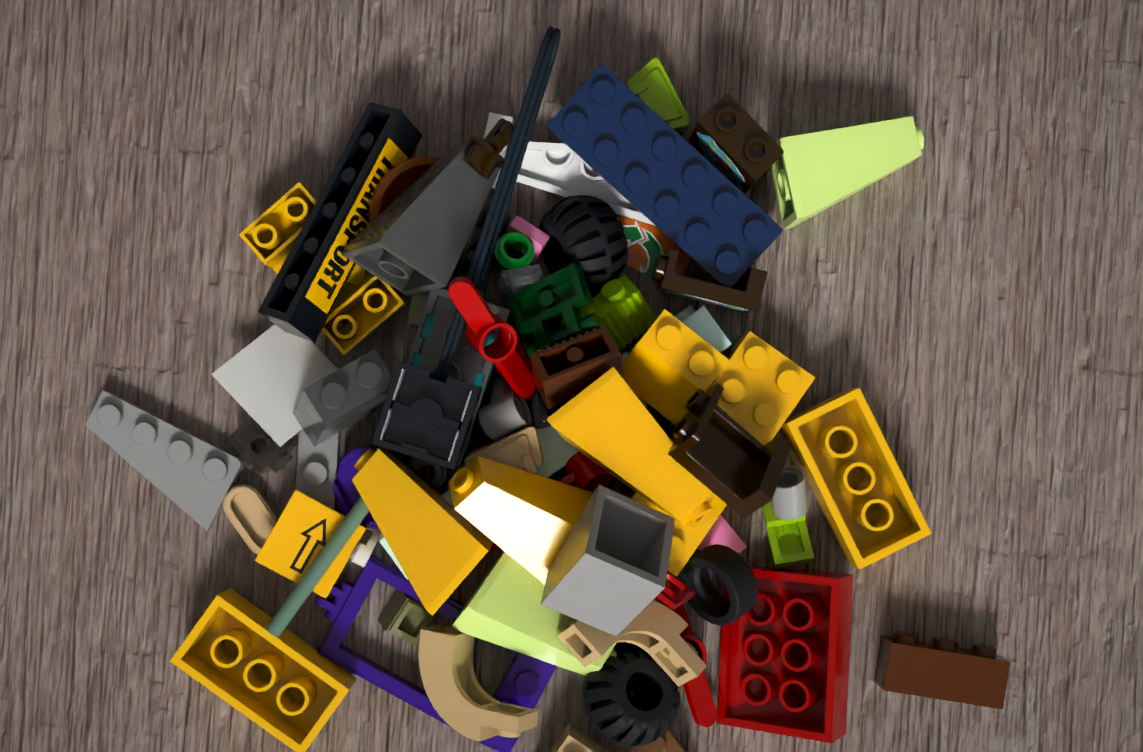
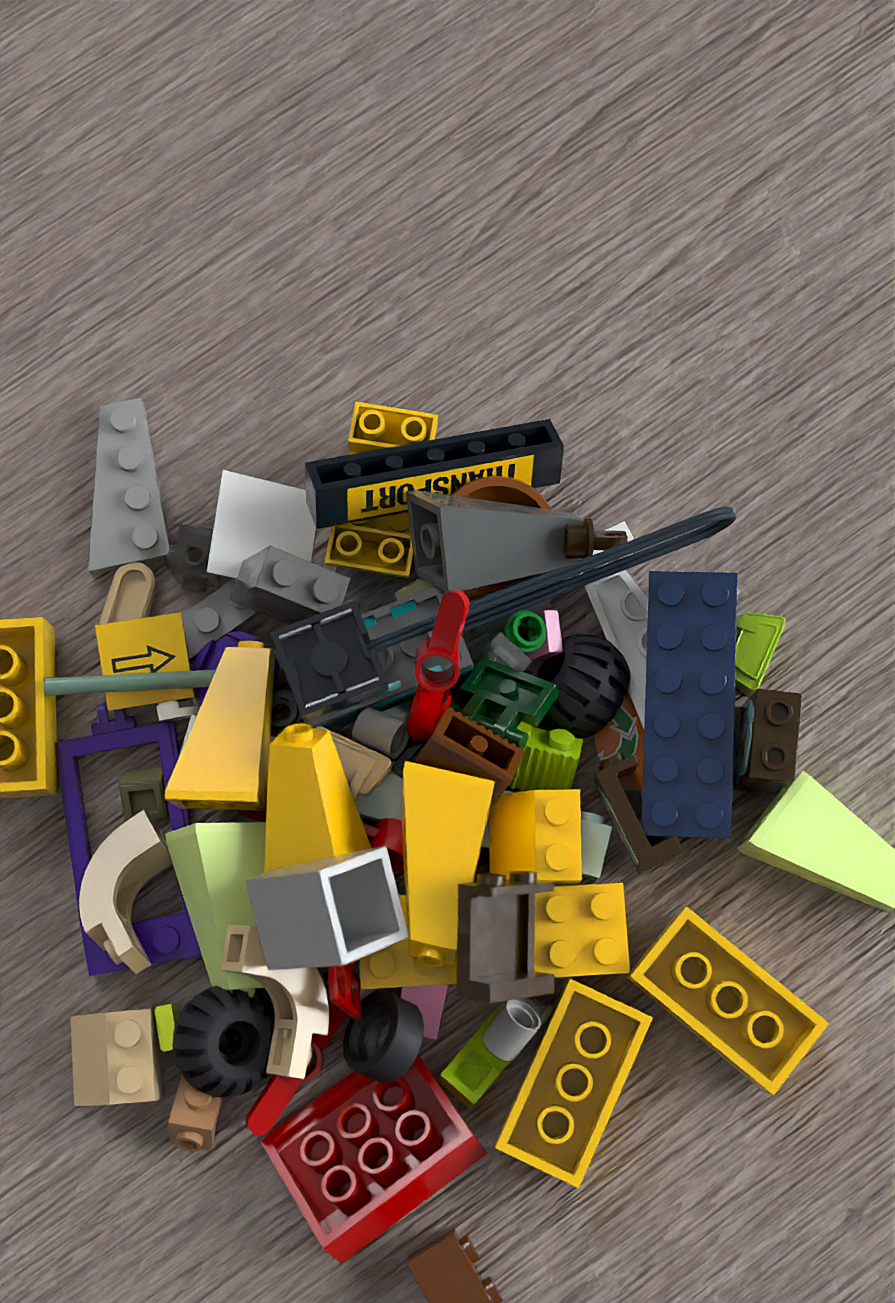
camera: 55 degrees right, 10 degrees down
(582, 726) = (165, 1020): none -> neon yellow tile
(886, 325) = (727, 1000): none -> yellow brick

